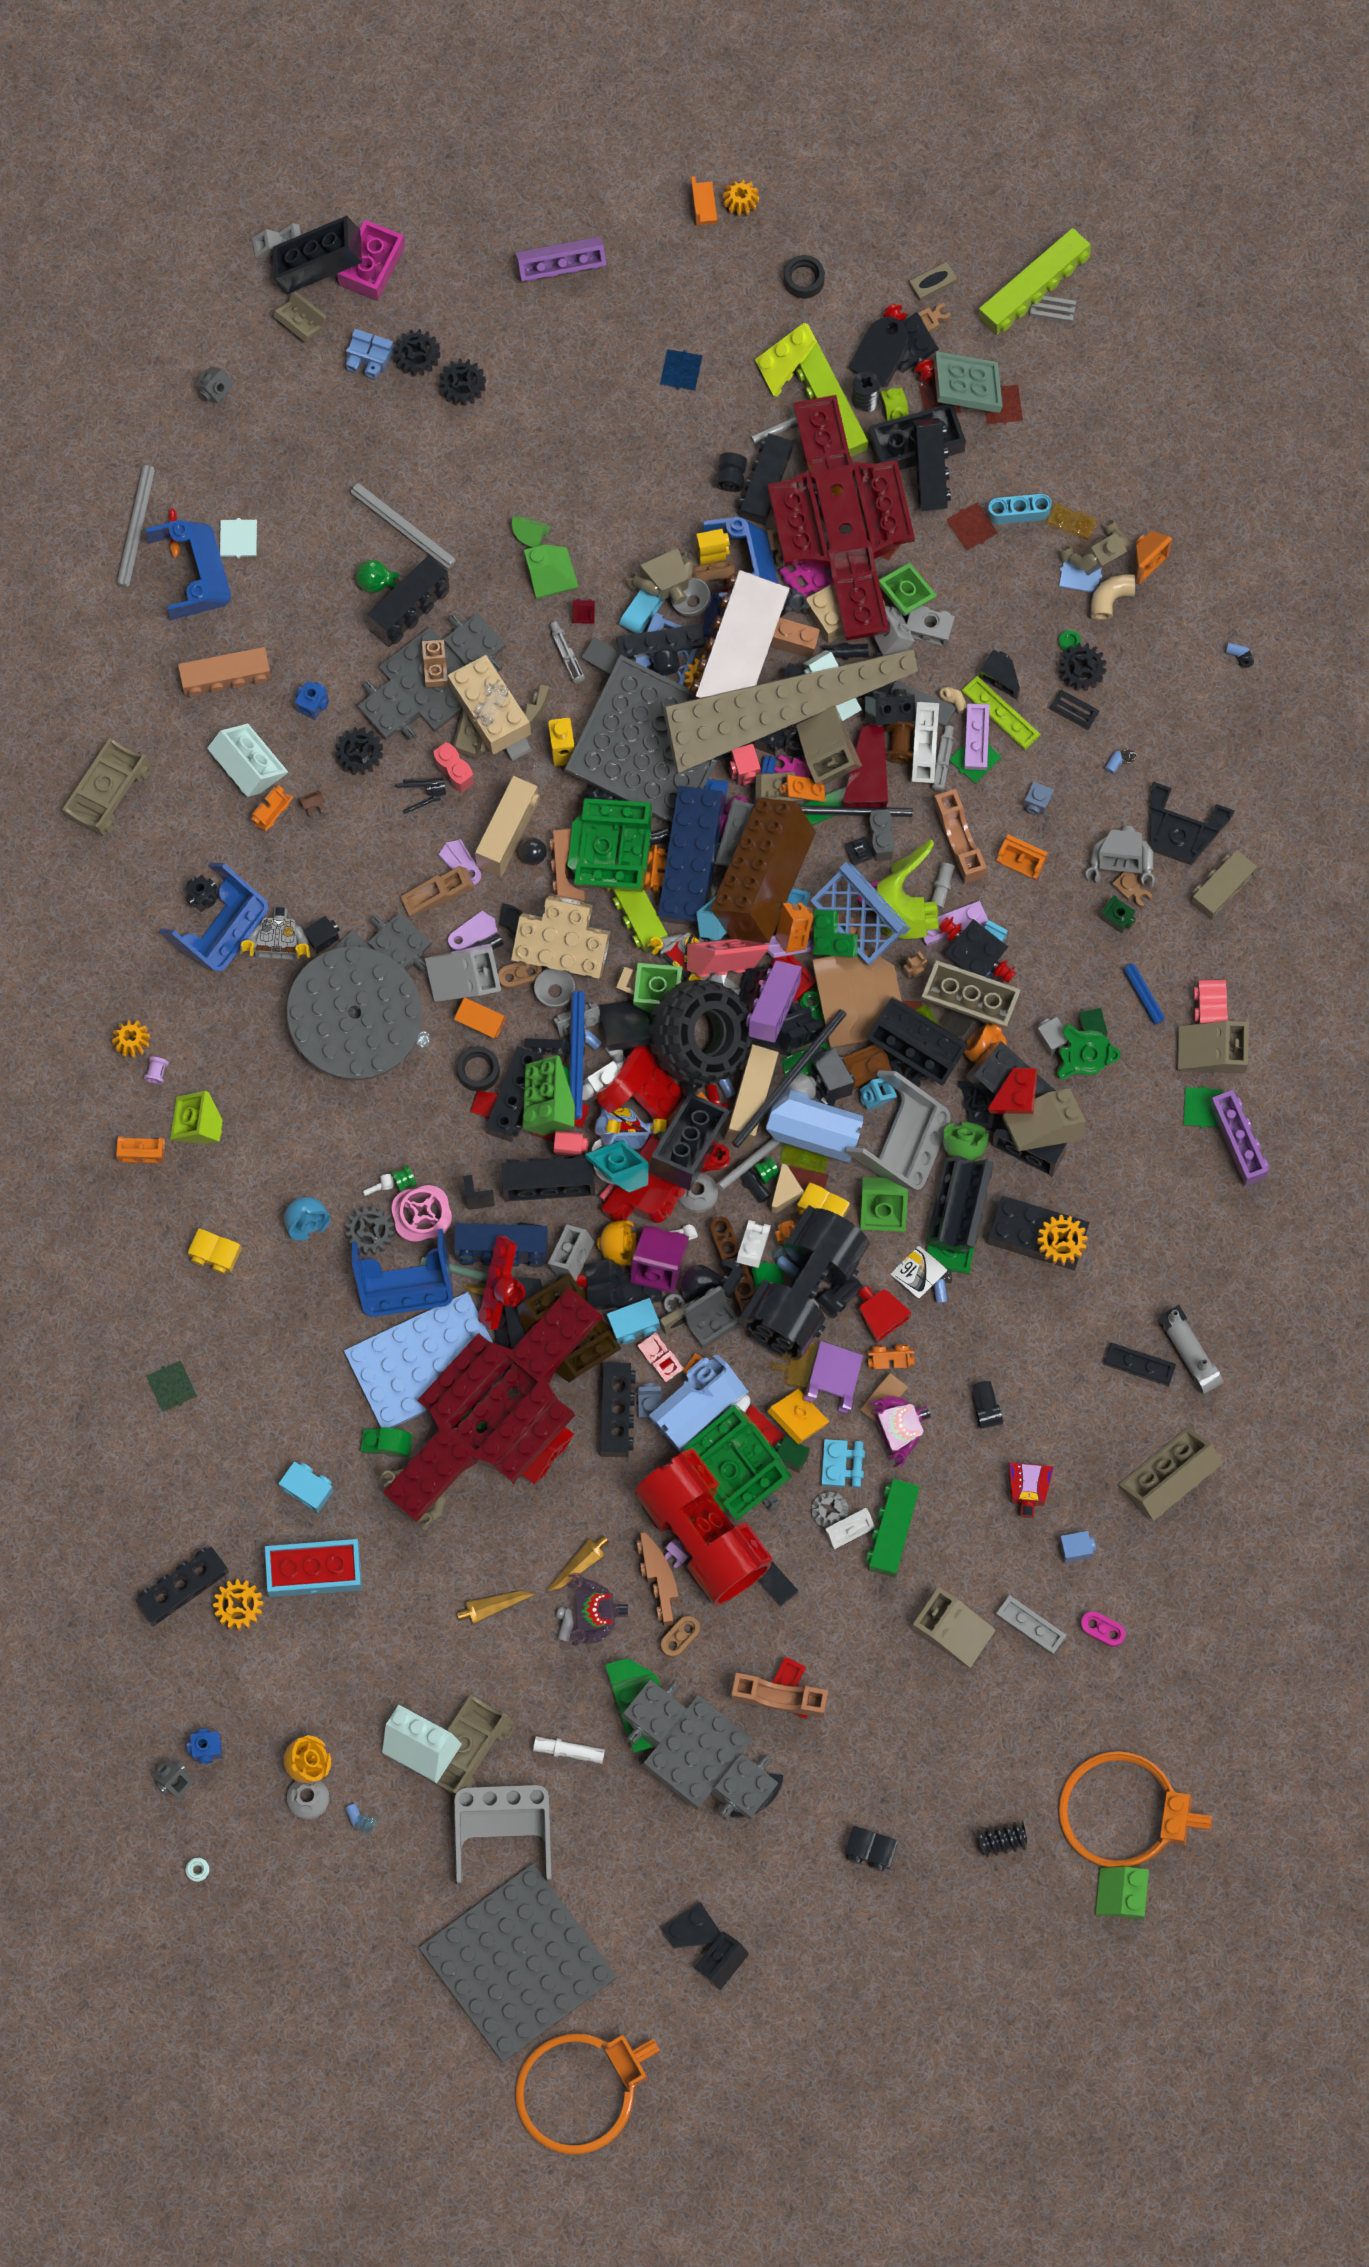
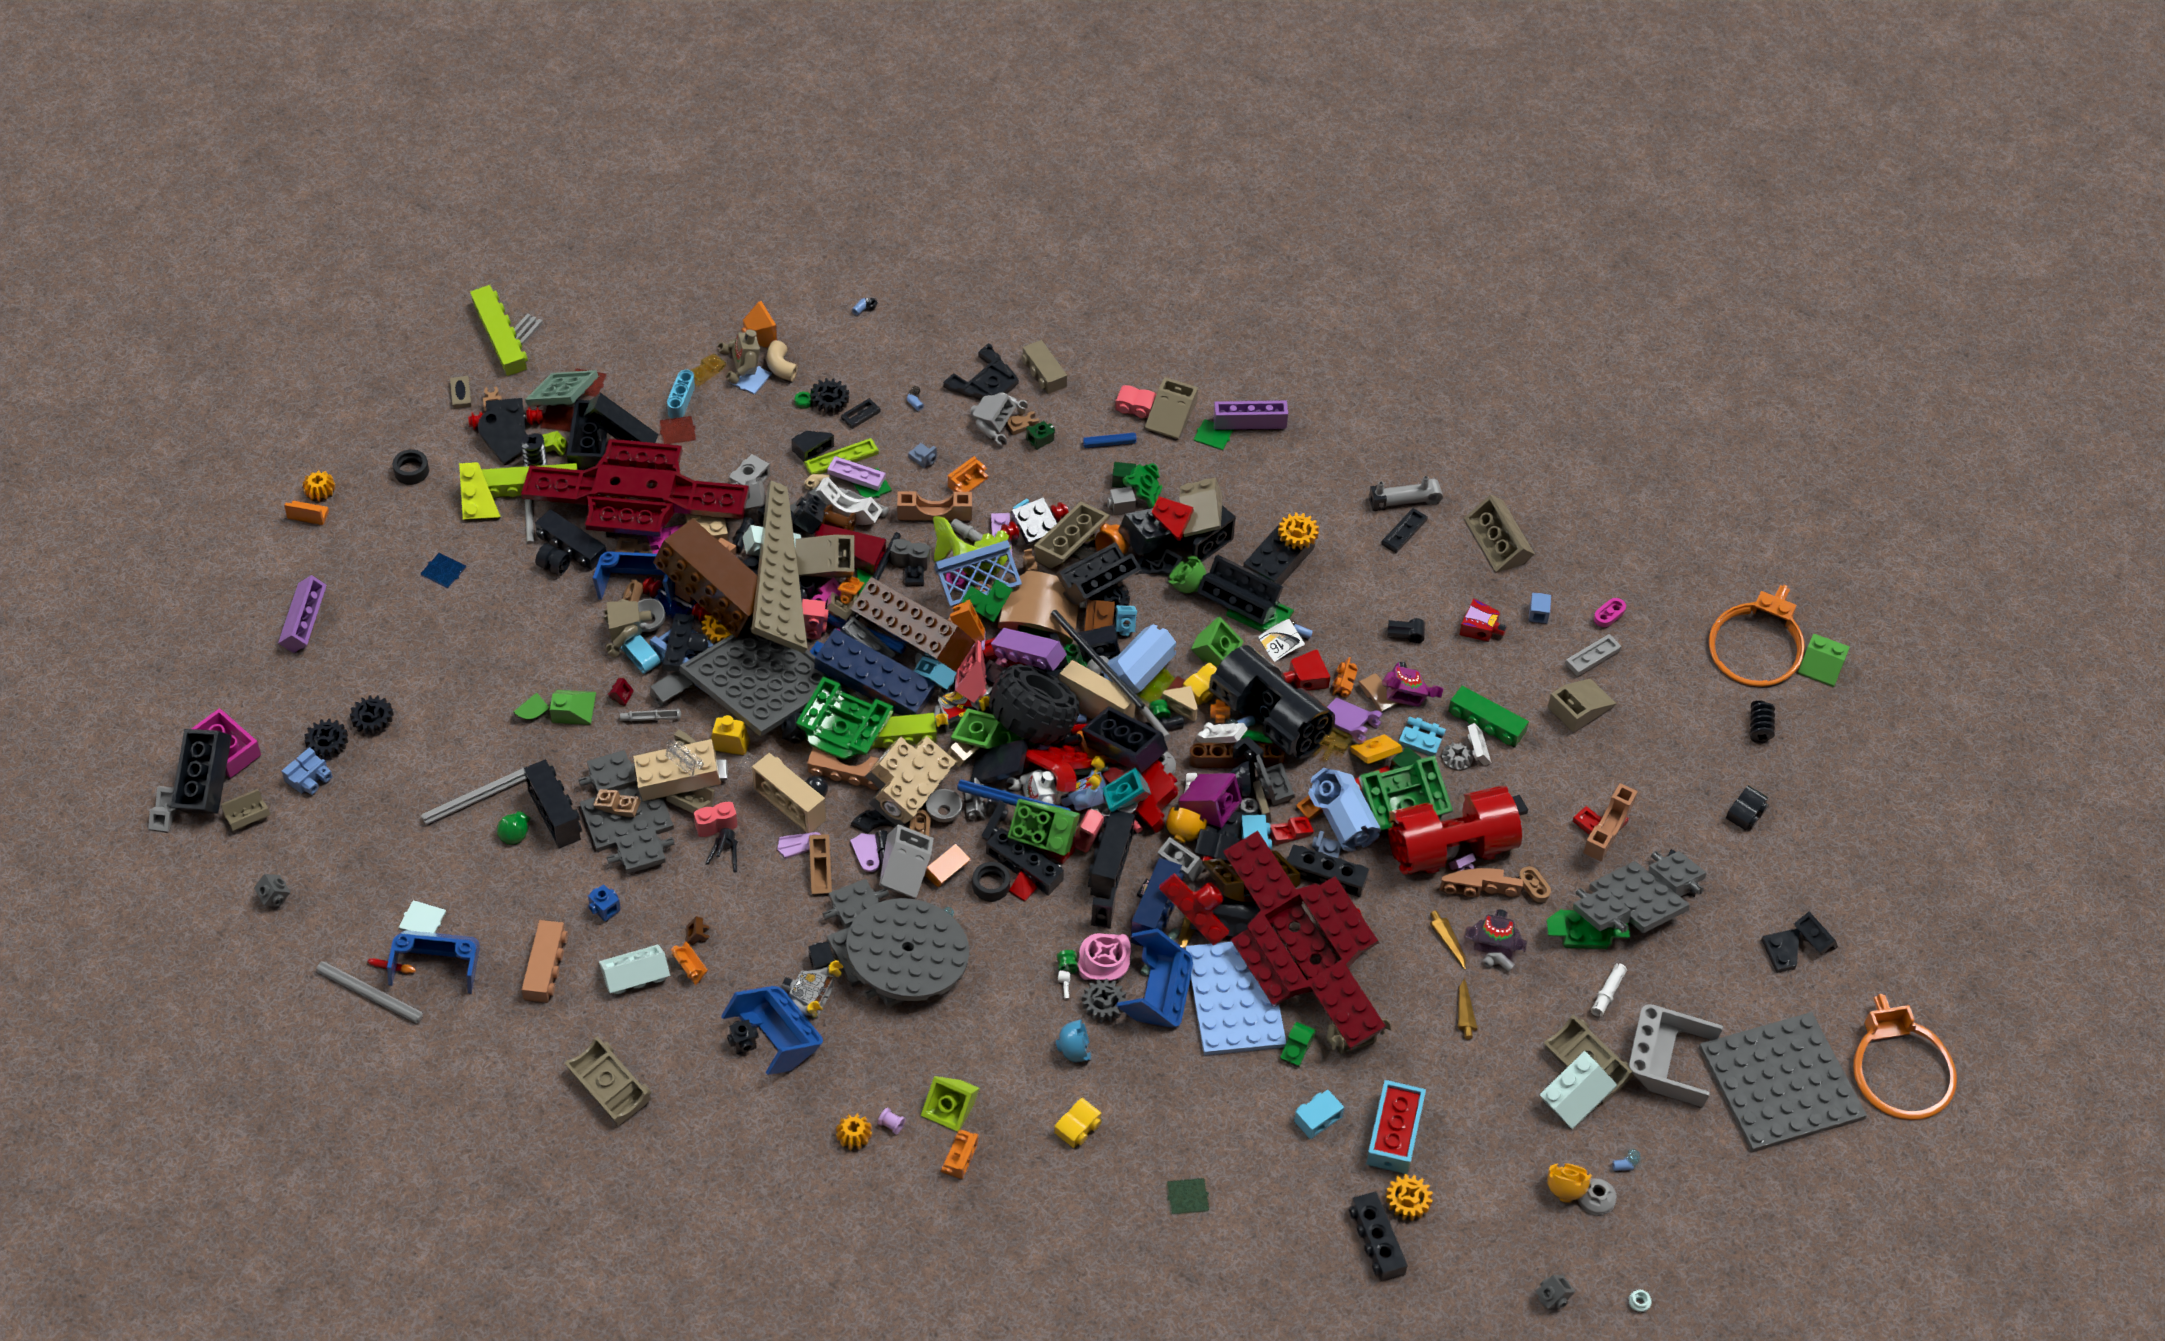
camera: 75 degrees left, 20 degrees down
(211, 1751) = (1532, 1257): blue brick -> none
(363, 742) = (657, 887): black gear -> none
(712, 546) = (612, 585): yellow brick -> none
(907, 589) = (718, 471): bright green slope -> none
(912, 1139) = (1165, 608): light grey windscreen -> none

